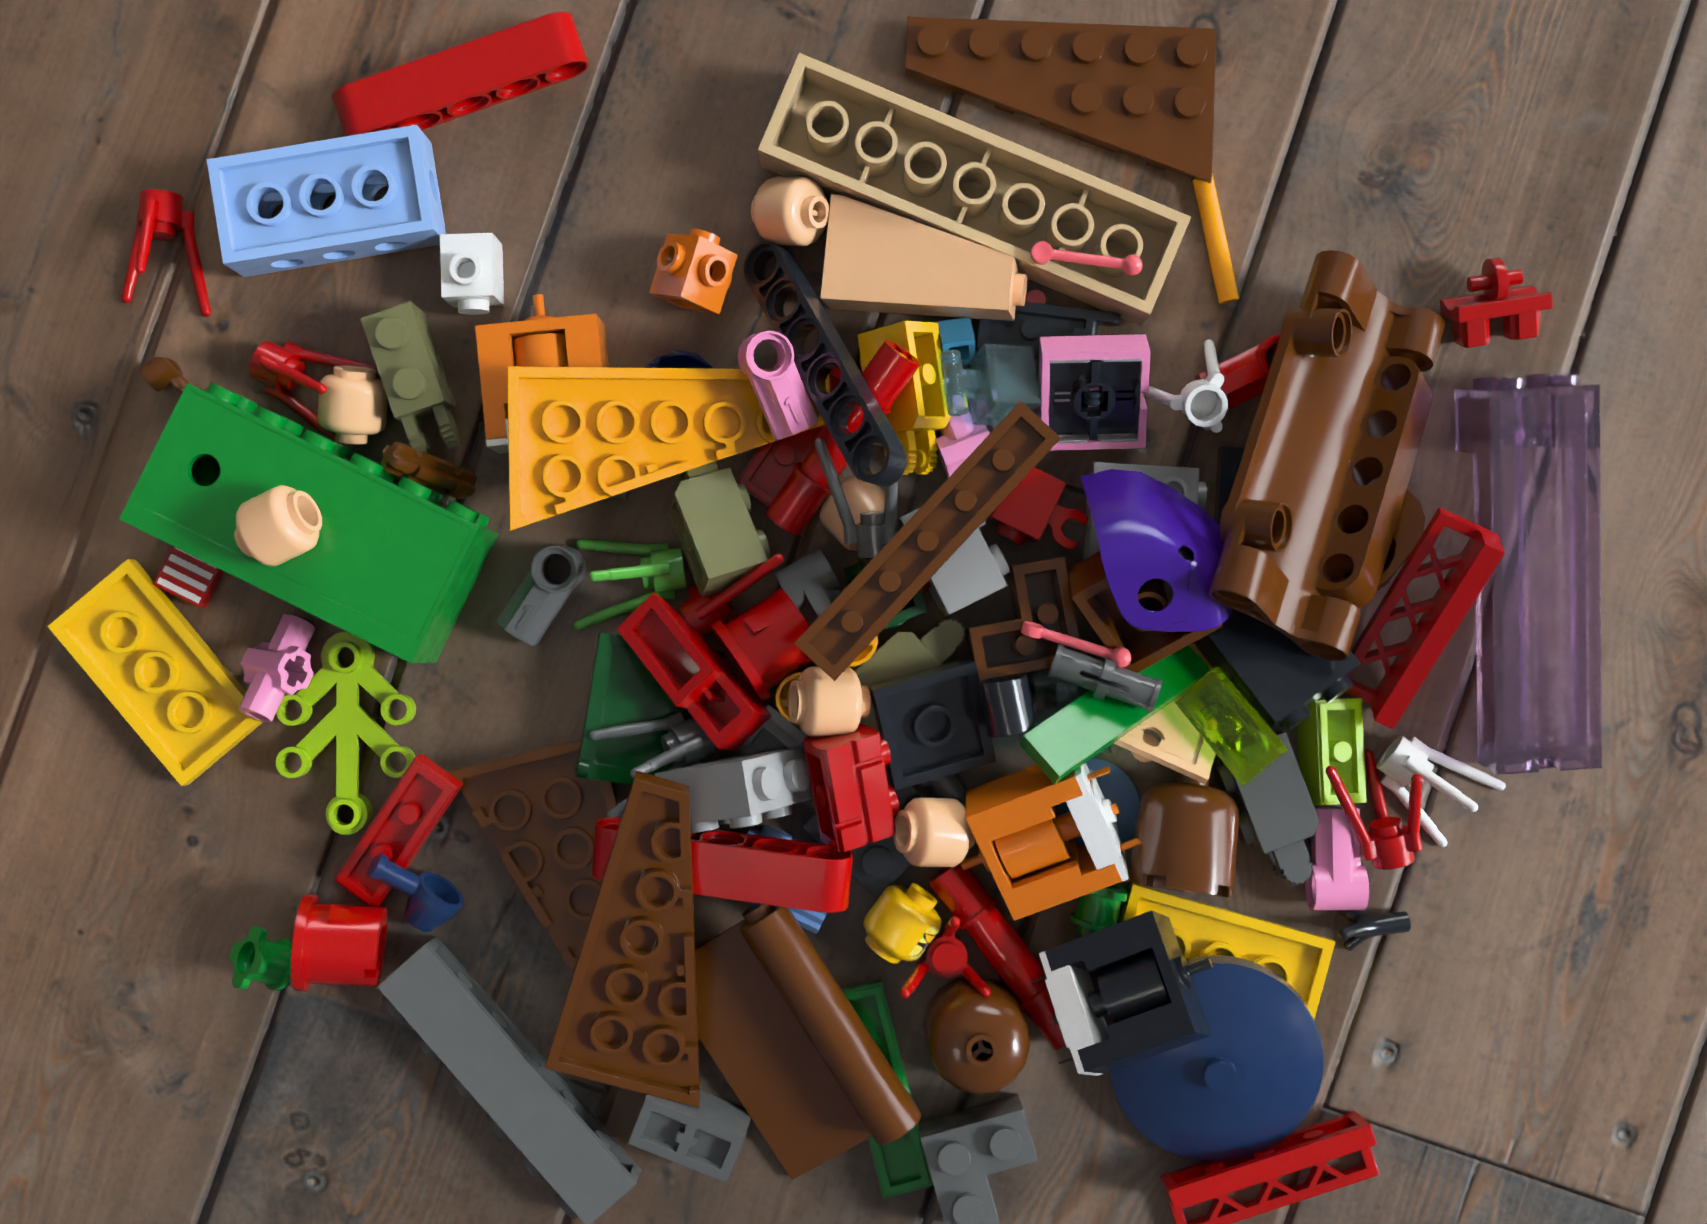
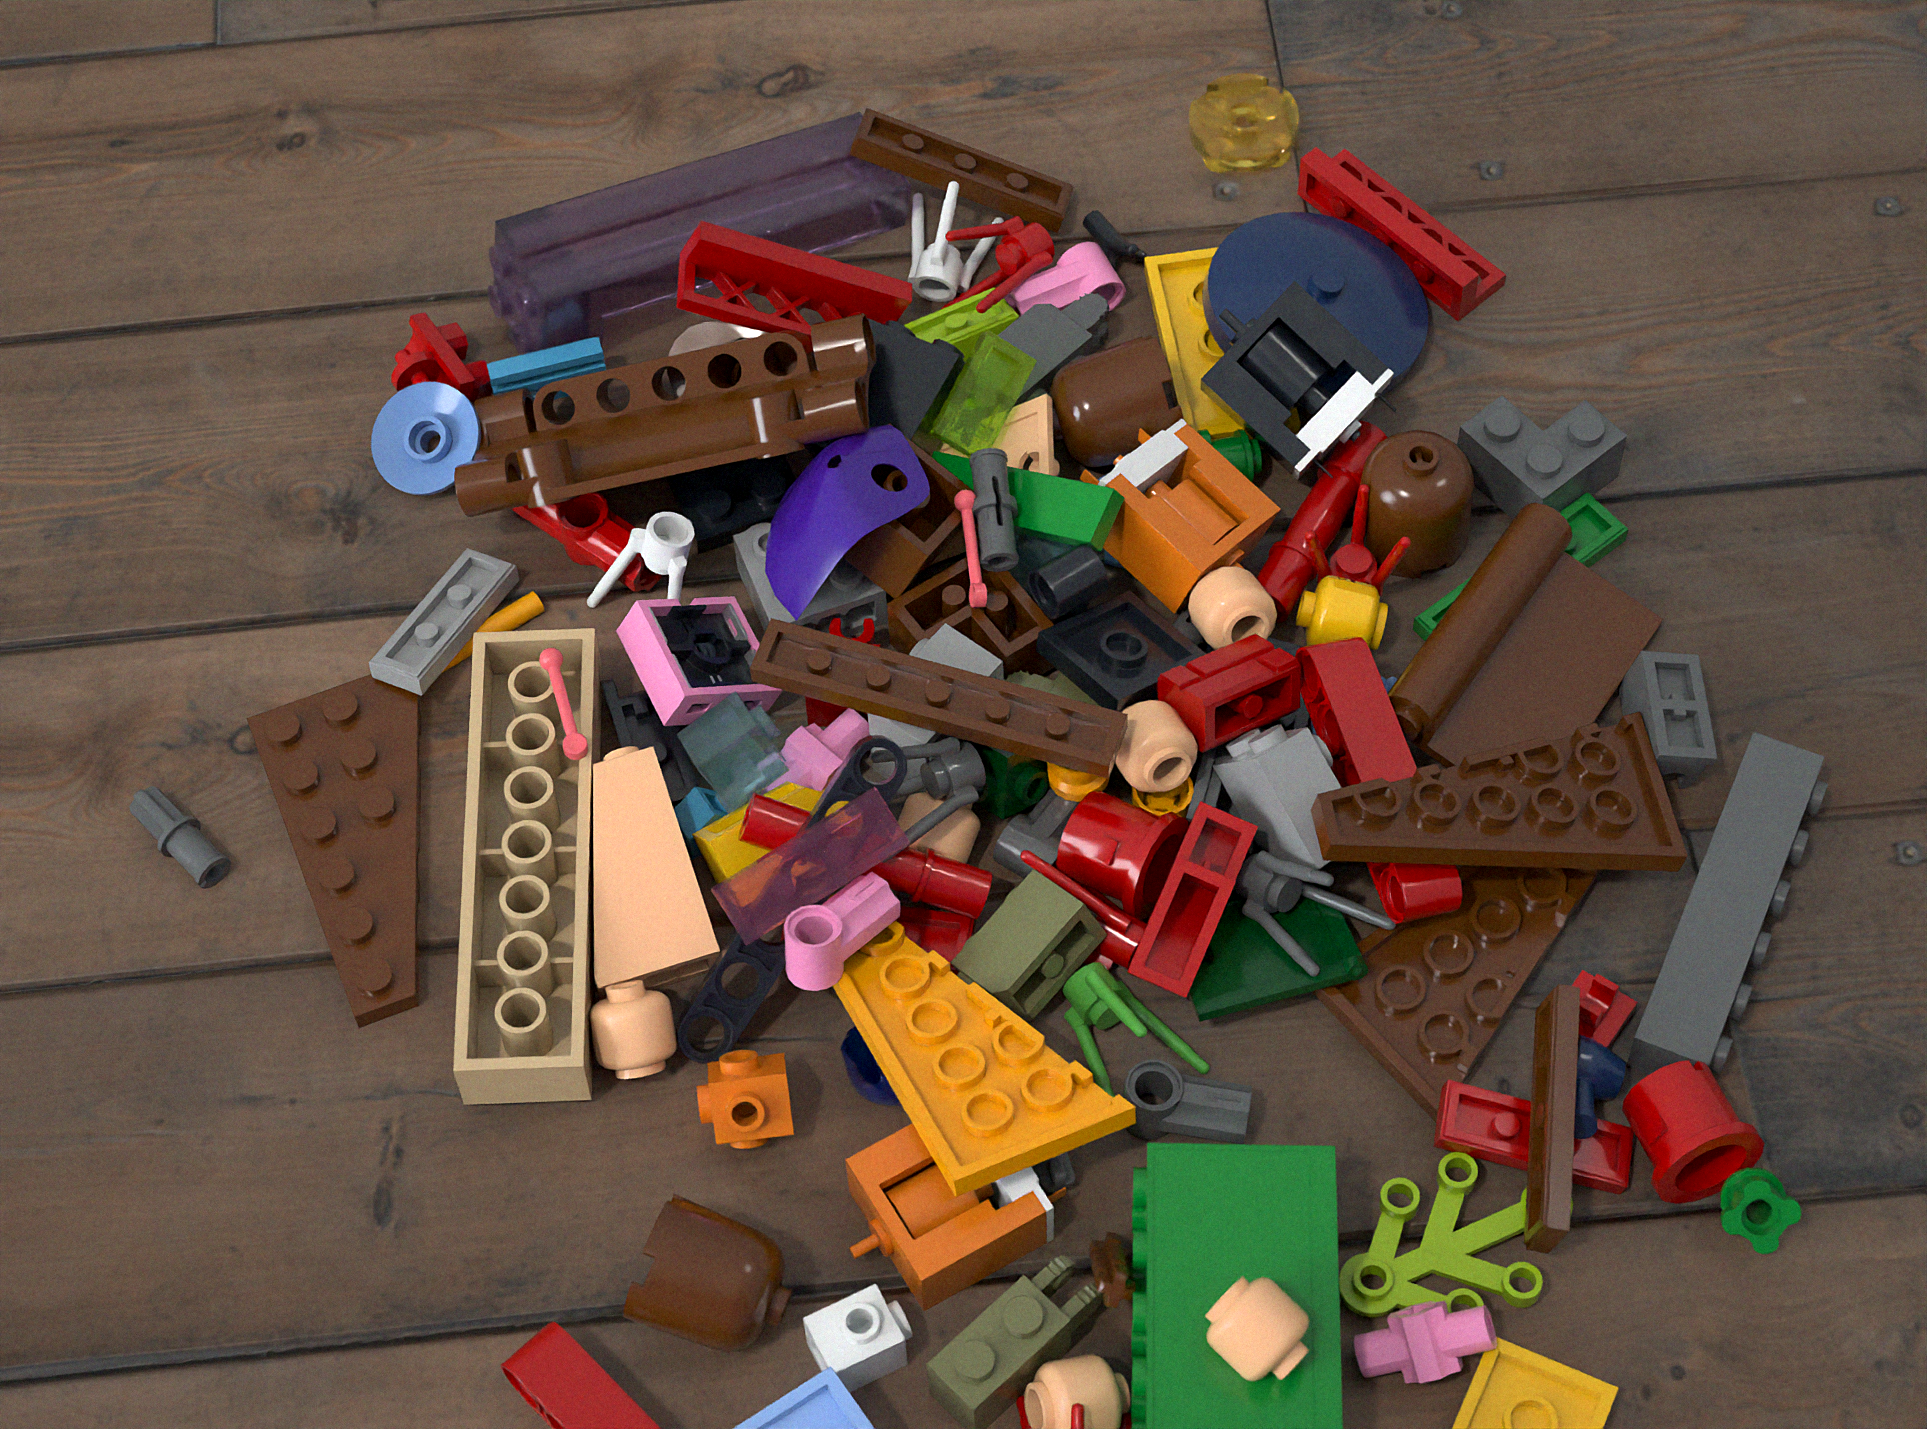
camera: 110 degrees left, 30 degrees down
(384, 846) = (1552, 1119): none -> reddish brown tile
(482, 932) = (1602, 1008): none -> red tile
(556, 181) = (709, 1279): none -> reddish brown cylinder
(825, 377) = (810, 865): none -> clear pink tile
(1235, 214) = (444, 621): none -> light grey tile
(1427, 248) = (408, 425): none -> medium blue dish
(1448, 391) = (546, 366): none -> dark azure tile
(1459, 1128) = (1237, 148): none -> clear yellow plate
(1500, 827) = (979, 174): none -> reddish brown tile

